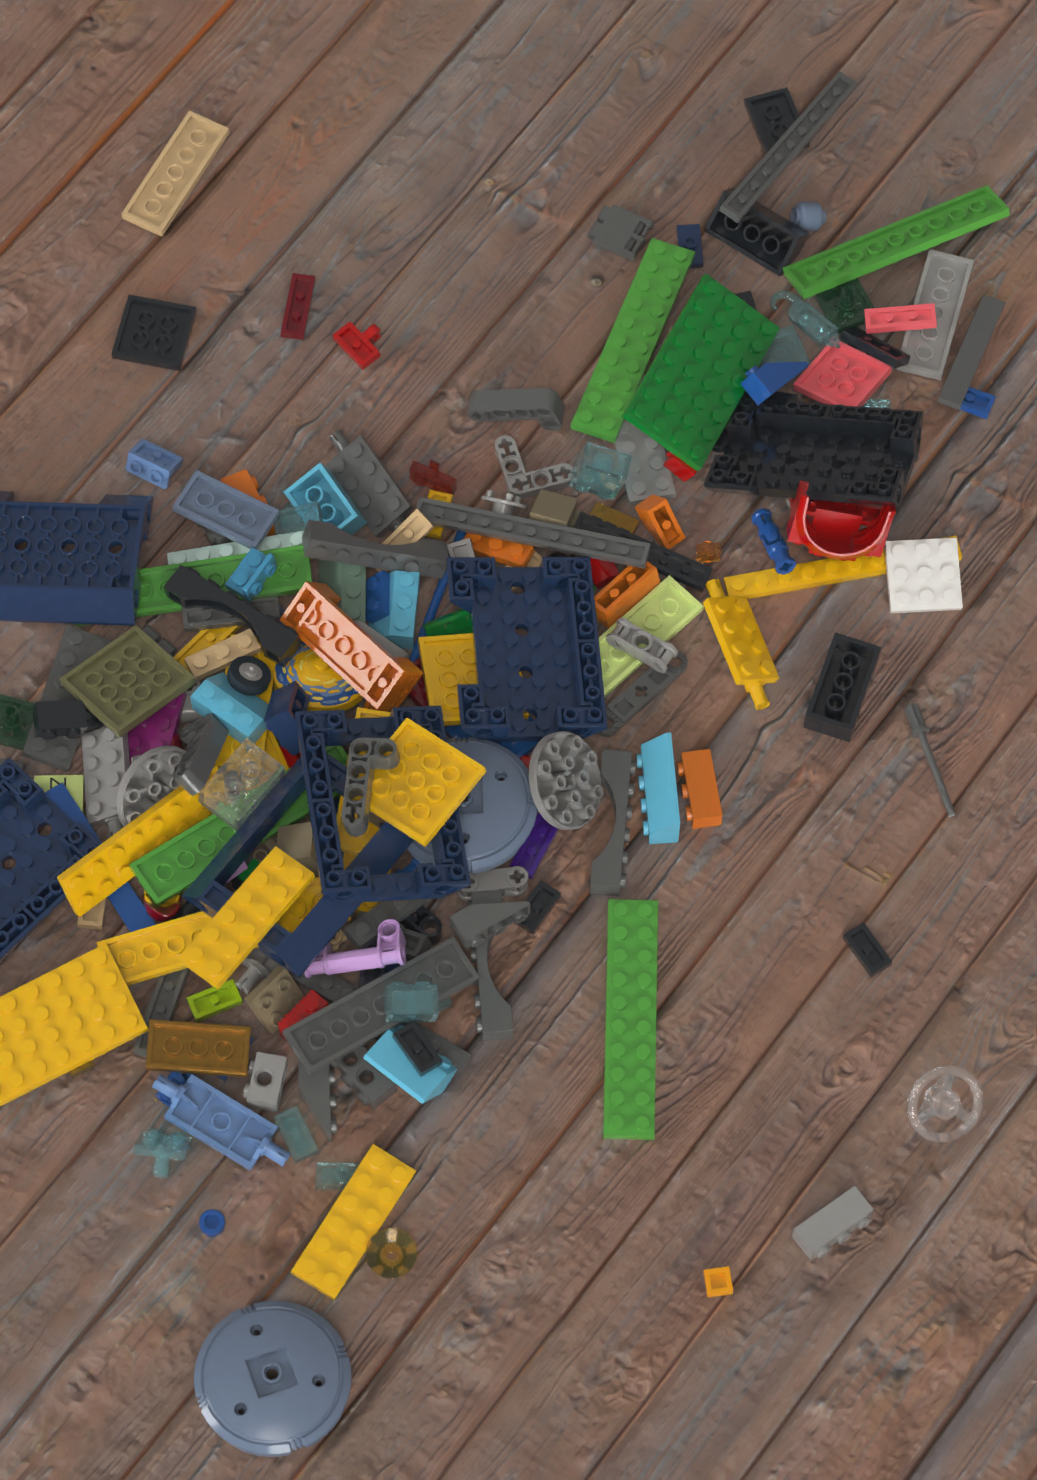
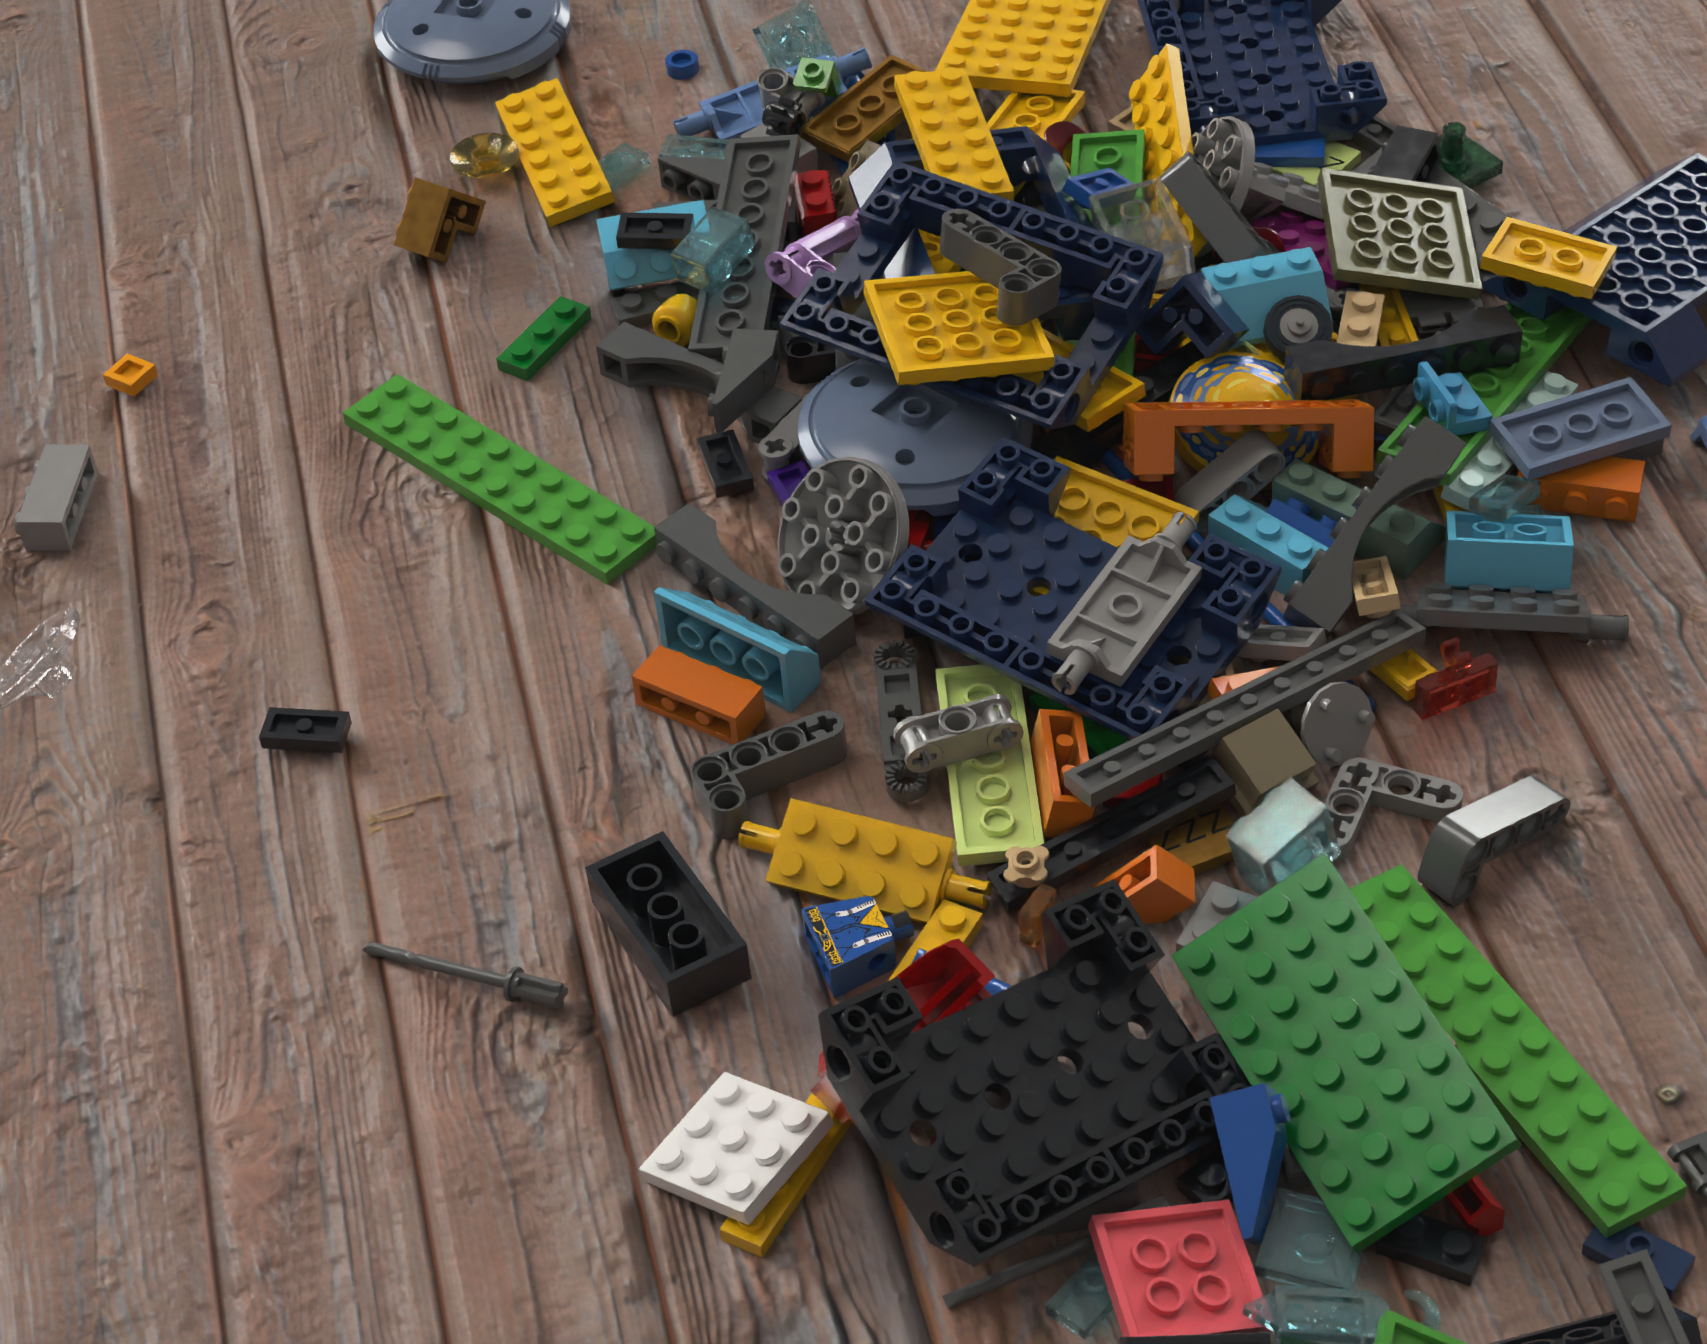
camera: 135 degrees right, 20 degrees down
(123, 573) = (1548, 258): none -> yellow plate
(208, 1078) = (817, 76): none -> bright green bracket
(212, 837) = (1093, 183): none -> blue plate
(228, 1091) = (777, 82): none -> light grey piece
(257, 1072) = (783, 117): none -> black gear
(451, 1018) = (675, 319): none -> yellow head
(472, 1215) = (433, 218): none -> pearl gold brick
(511, 1088) = (543, 338): none -> green plate
(525, 606) = (1125, 608): none -> light grey plate
(692, 572) = (1030, 874): none -> tan plate
(718, 721) = (764, 763): none -> dark grey beam
(783, 613) = (853, 941): none -> blue torso

